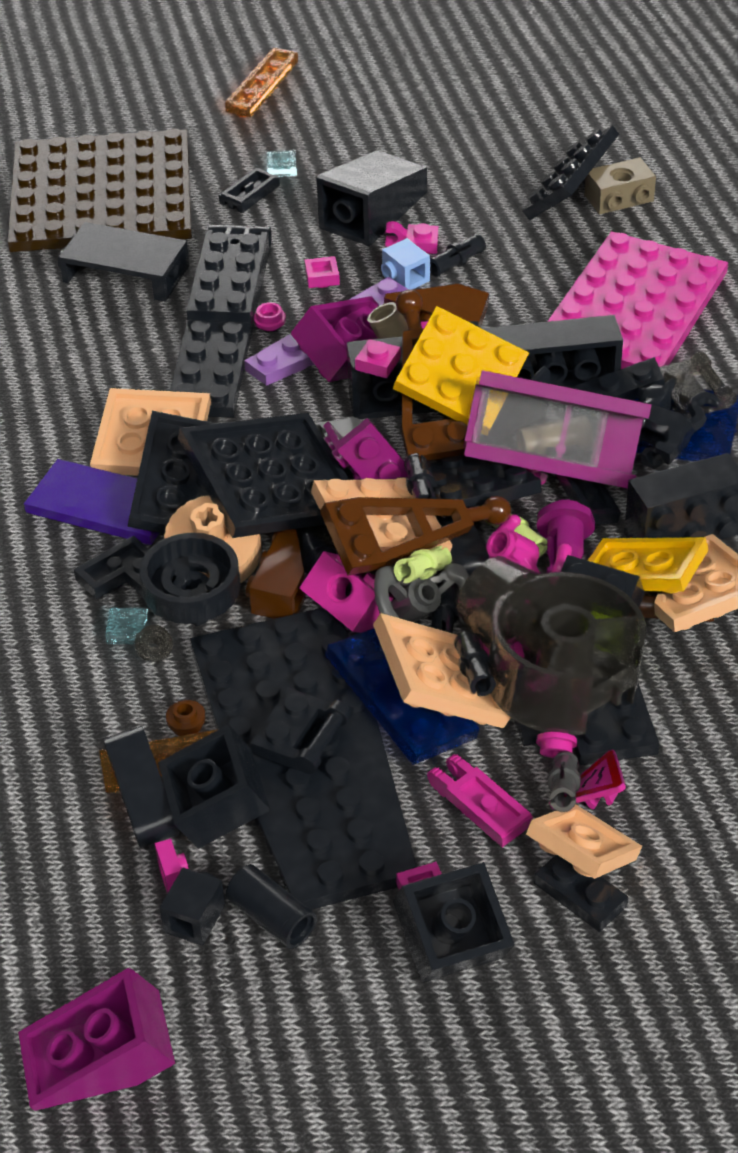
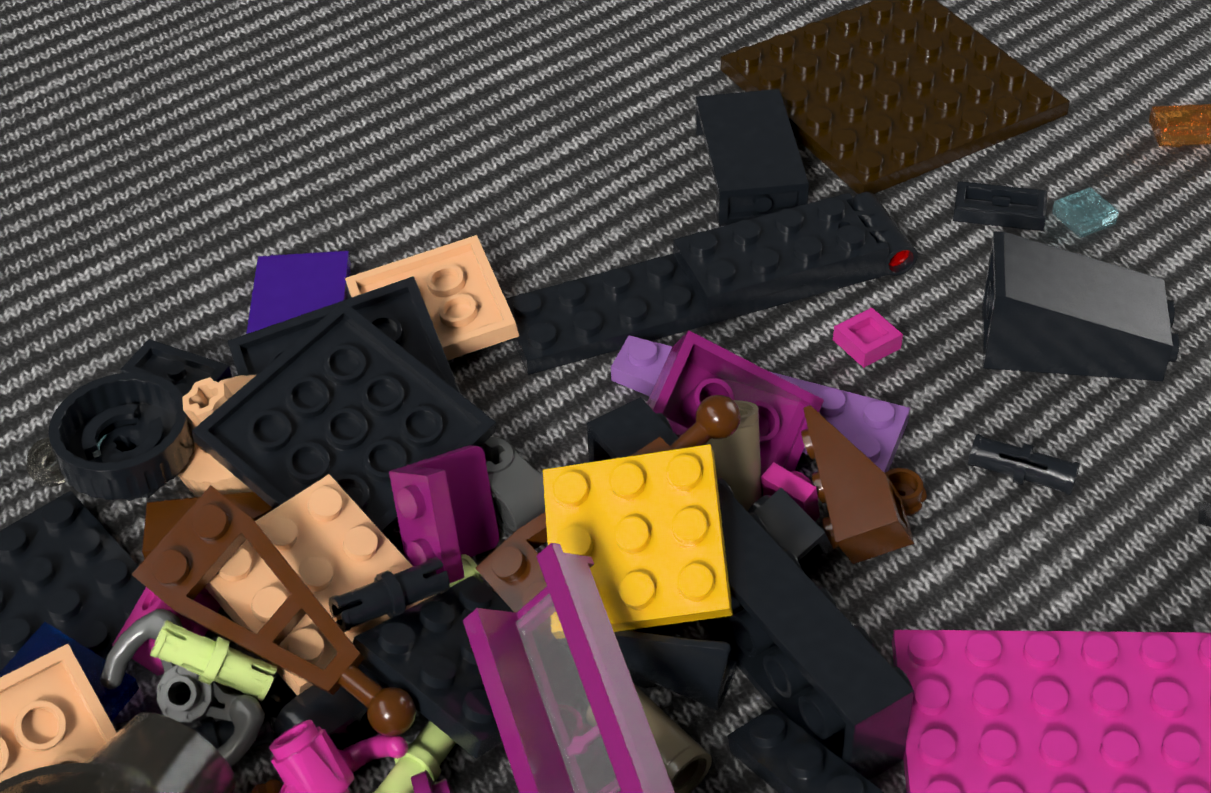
camera: 65 degrees right, 0 degrees up
(269, 316) = (737, 325): dark pink plate -> none
(377, 358) = (609, 435): dark pink plate -> none
(406, 264) = (943, 415): light blue brick -> none
(422, 235) = (1030, 410): dark pink plate -> none

